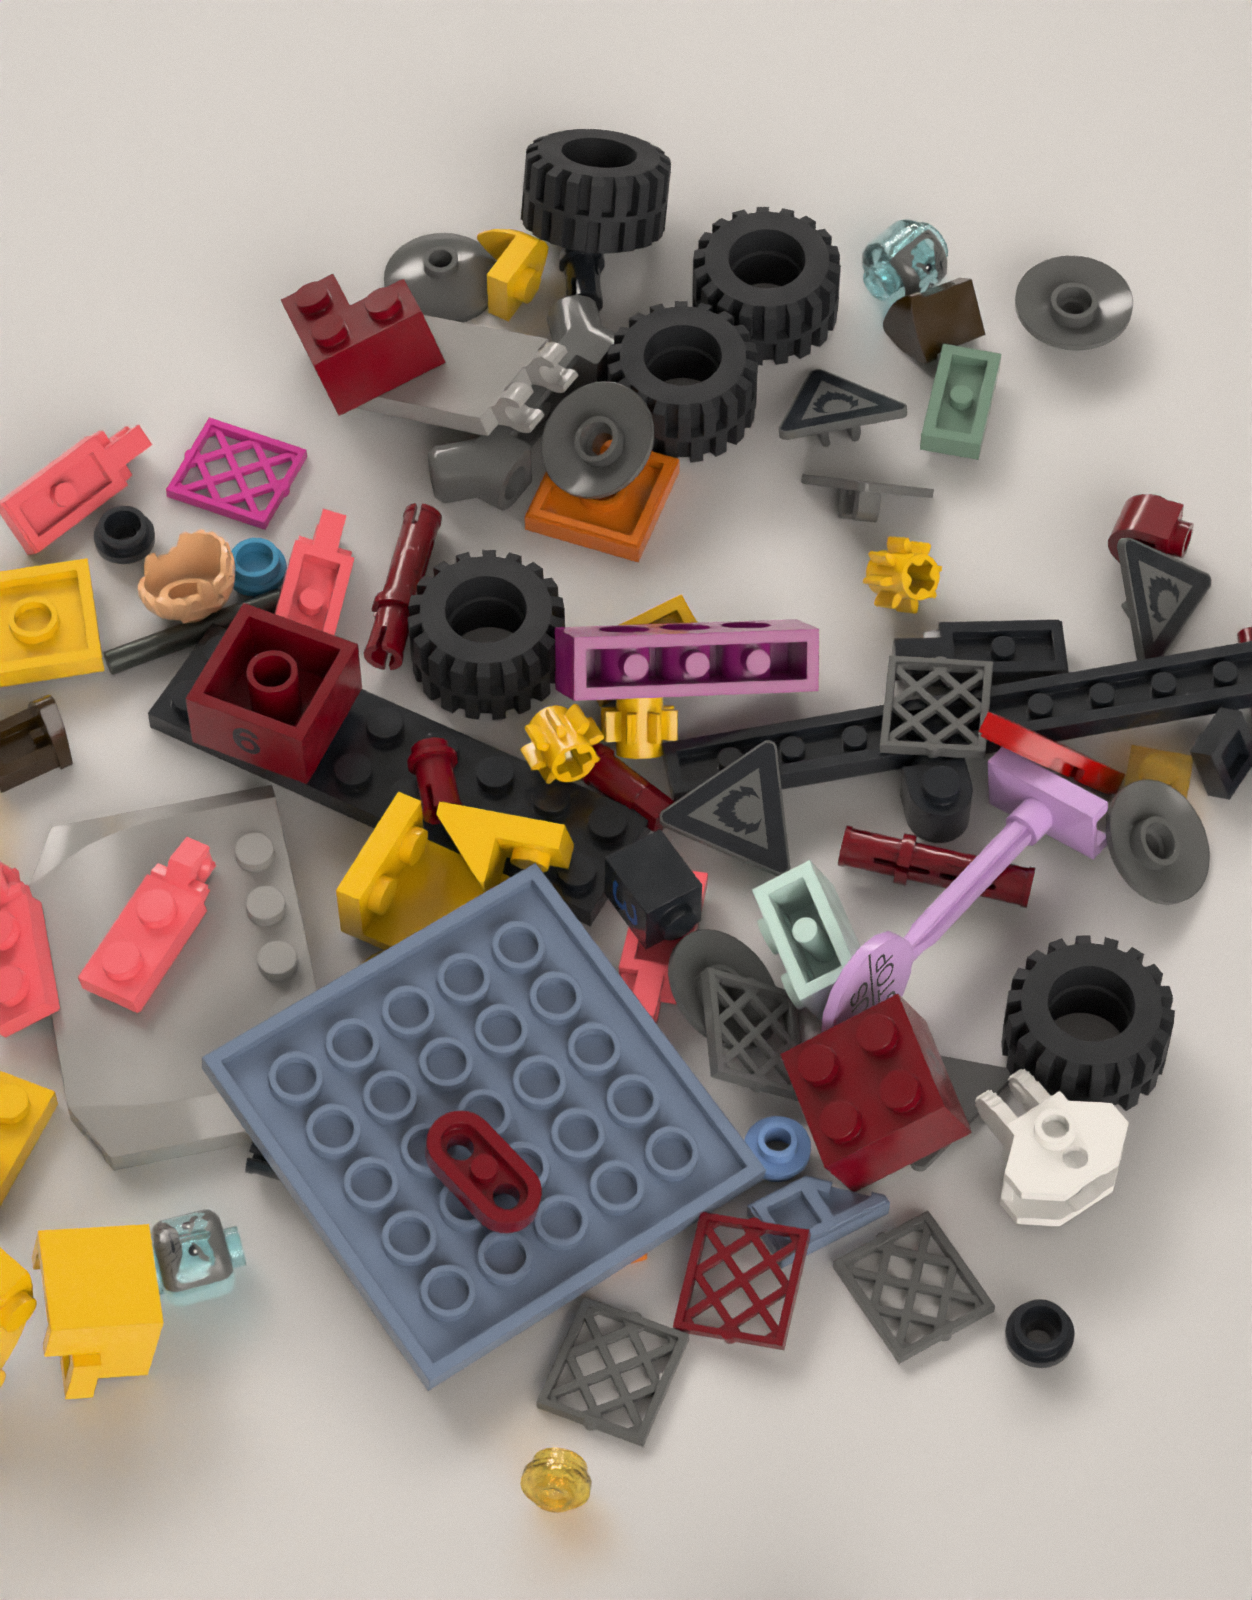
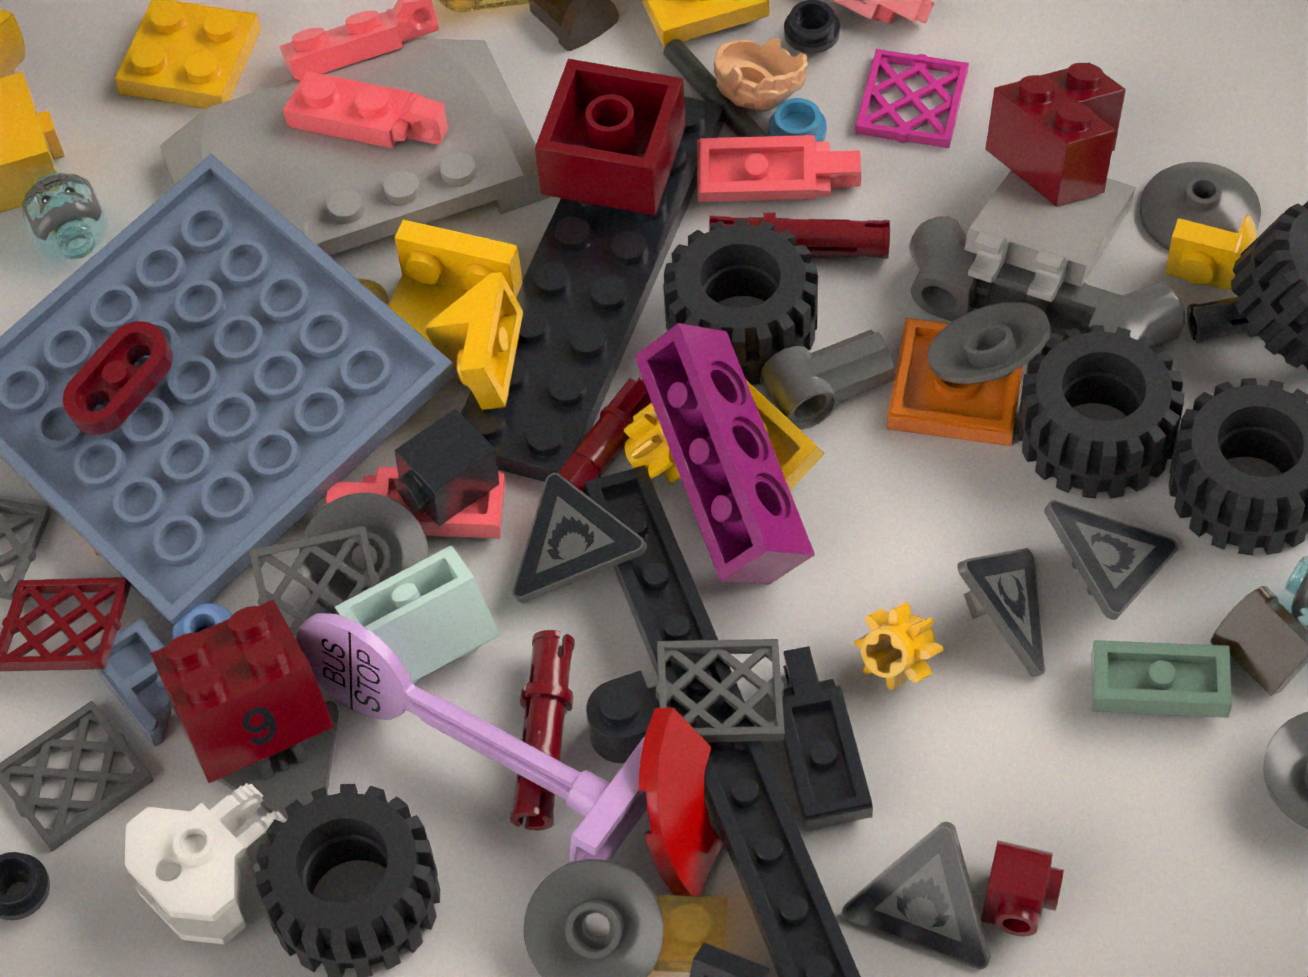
camera: 85 degrees right, 0 degrees up
(433, 765) = (553, 283): dark red pin -> none
(562, 743) = (604, 369): yellow gear -> none
(583, 578) = (812, 384): none -> dark grey piece

